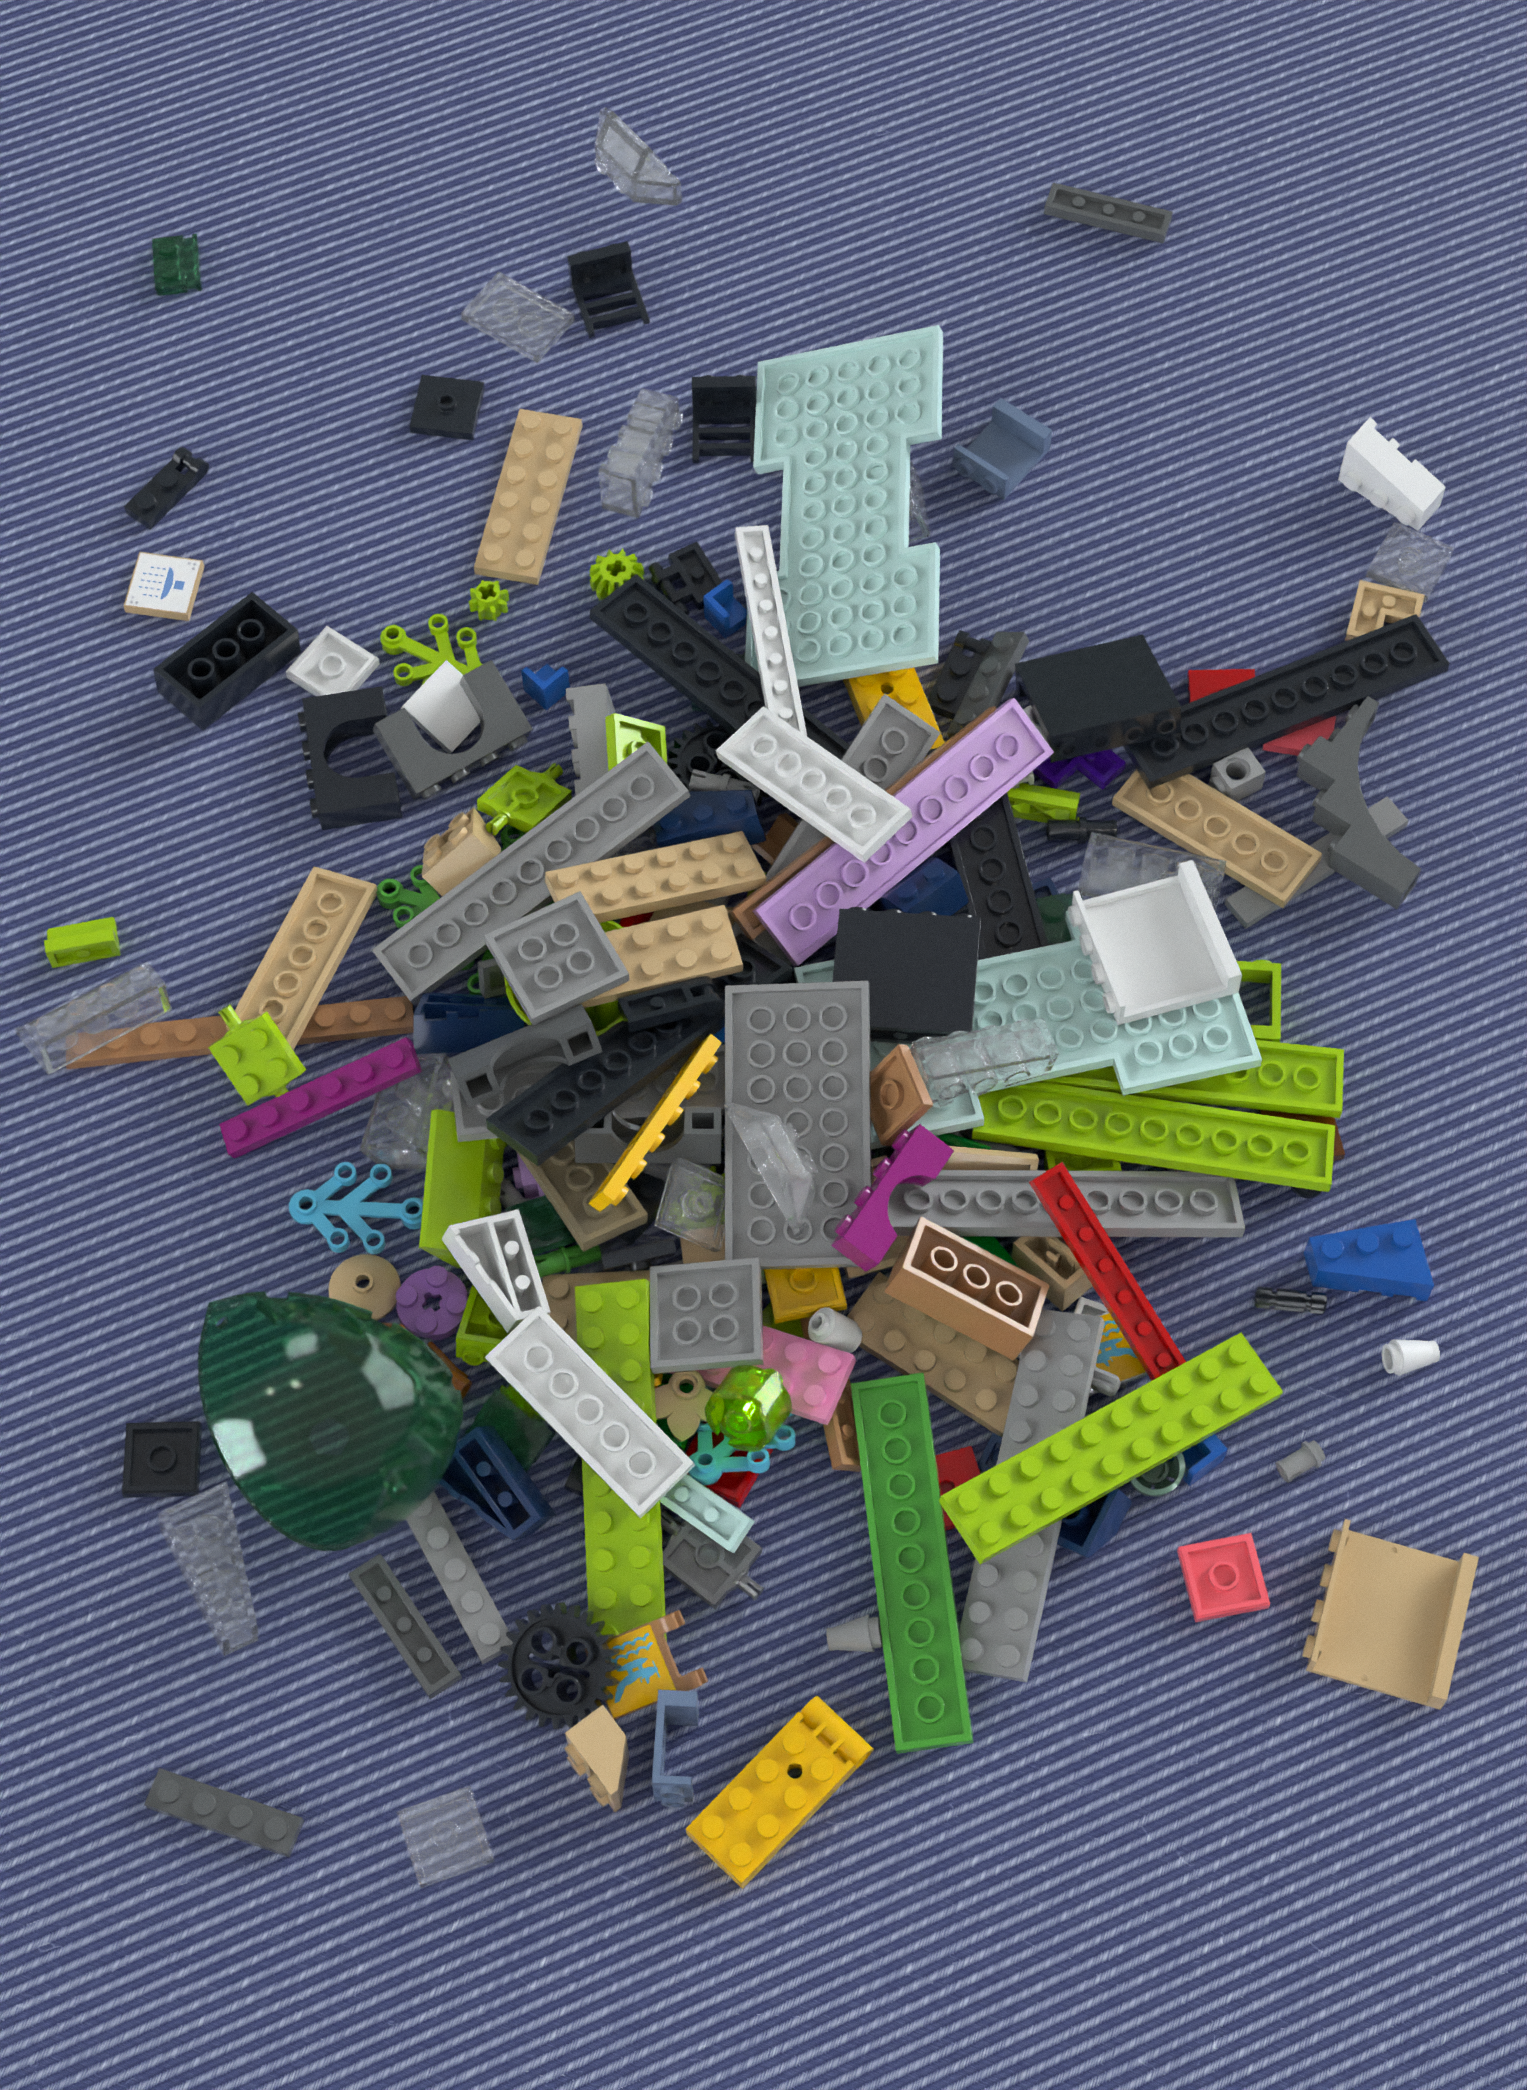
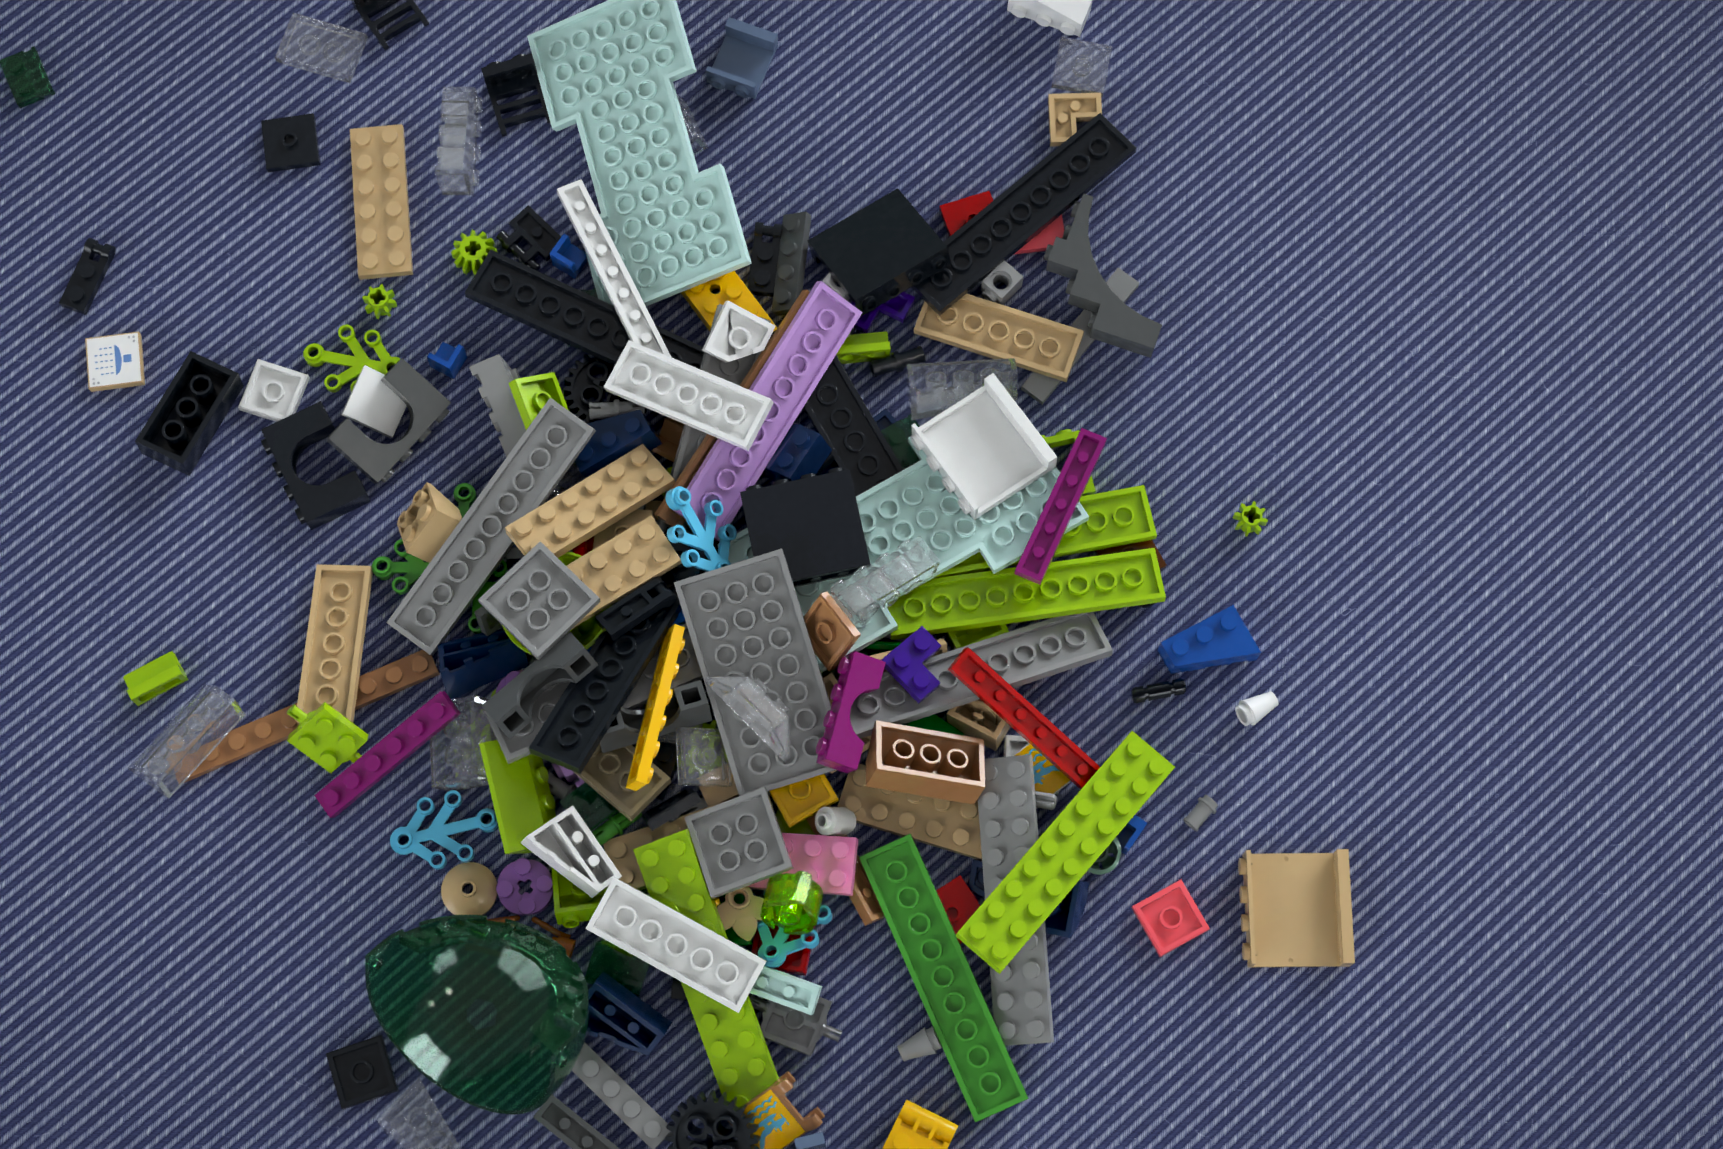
camera: 20 degrees left, 10 degrees up
(523, 798) = (463, 462): lime plate -> none
(776, 950) = (703, 537): none -> medium azure plant
(894, 733) = (737, 334): none -> white plate
(982, 1165) = (907, 666): none -> dark purple plate
(1229, 1035) = (1060, 506): none -> magenta plate
(1472, 1120) = (1256, 514): none -> lime gear

